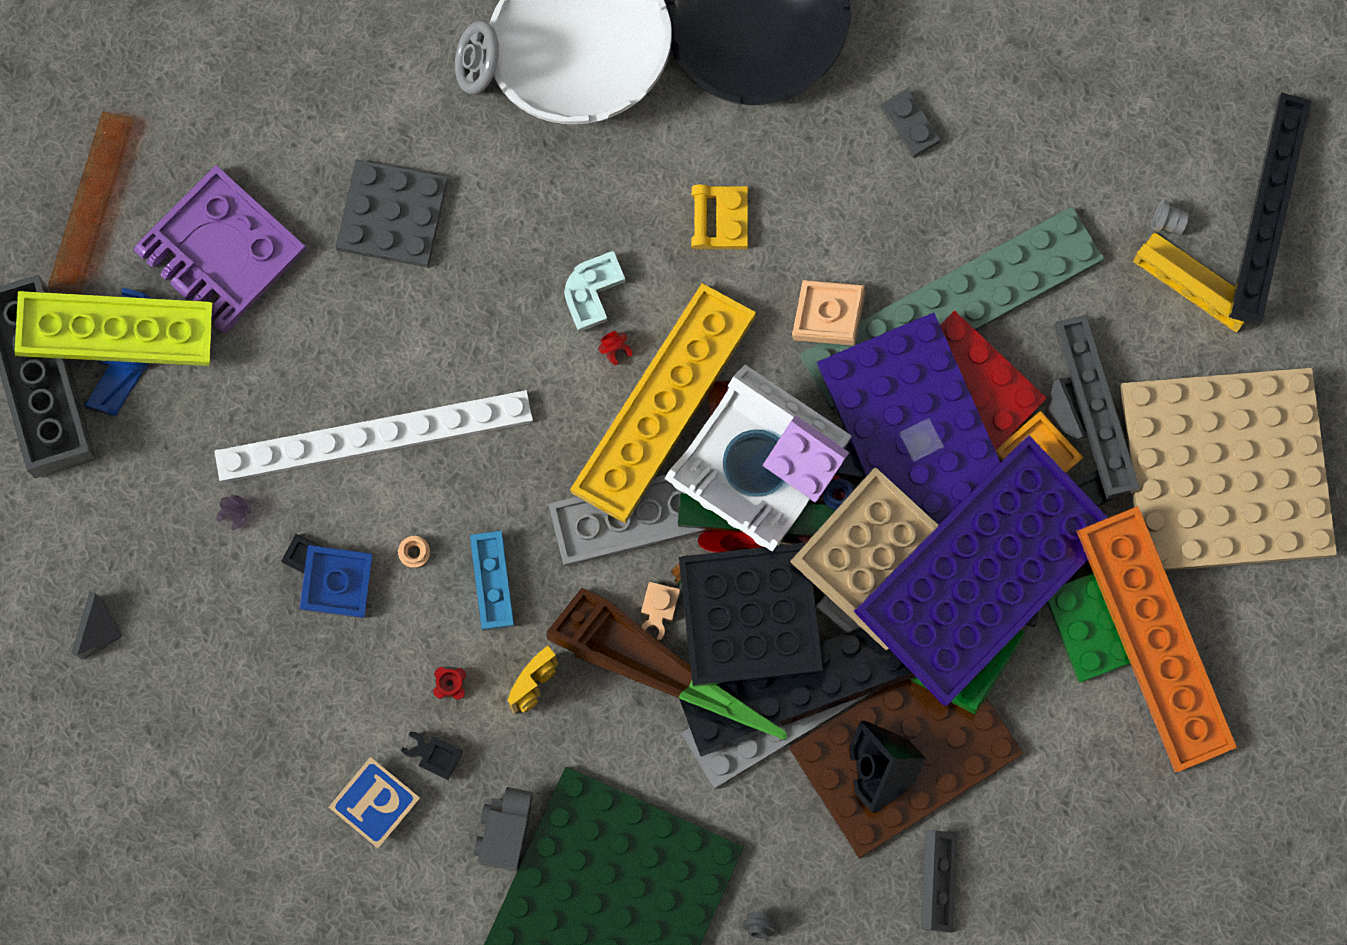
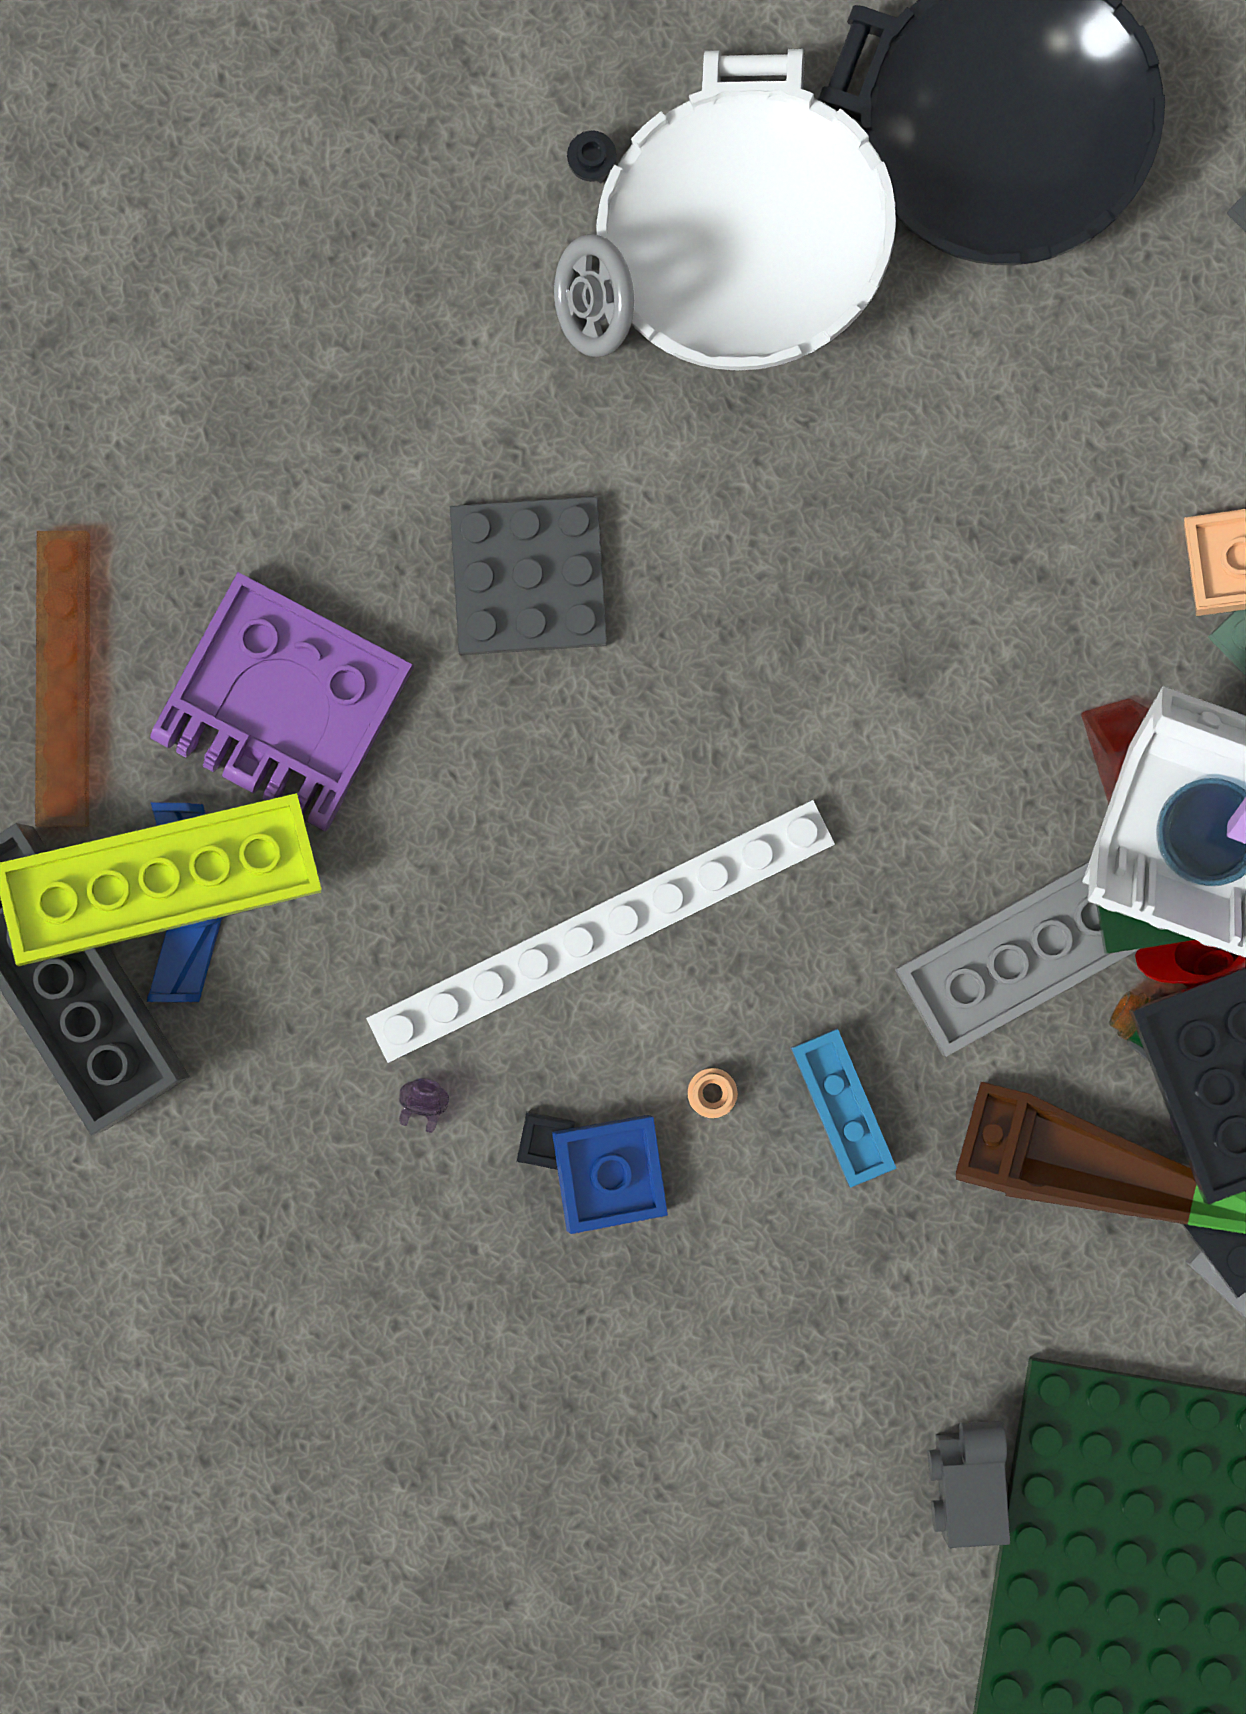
camera: 10 degrees left, 10 degrees up
(95, 629) = (268, 1337): dark grey slope -> none
(374, 802) = (764, 1492): piece -> none
(437, 756) = (838, 1396): black plate -> none
(443, 676) = (833, 1288): red plate -> none
(525, 690) = (946, 1273): yellow slope -> none
(584, 285) = (854, 615): light aqua plate -> none
(611, 343) = (923, 692): red plate -> none
(659, 606) = (1103, 1075): light nougat plate -> none
(663, 403) = (1030, 768): yellow plate -> none
(730, 217) = (1045, 445): yellow plate -> none

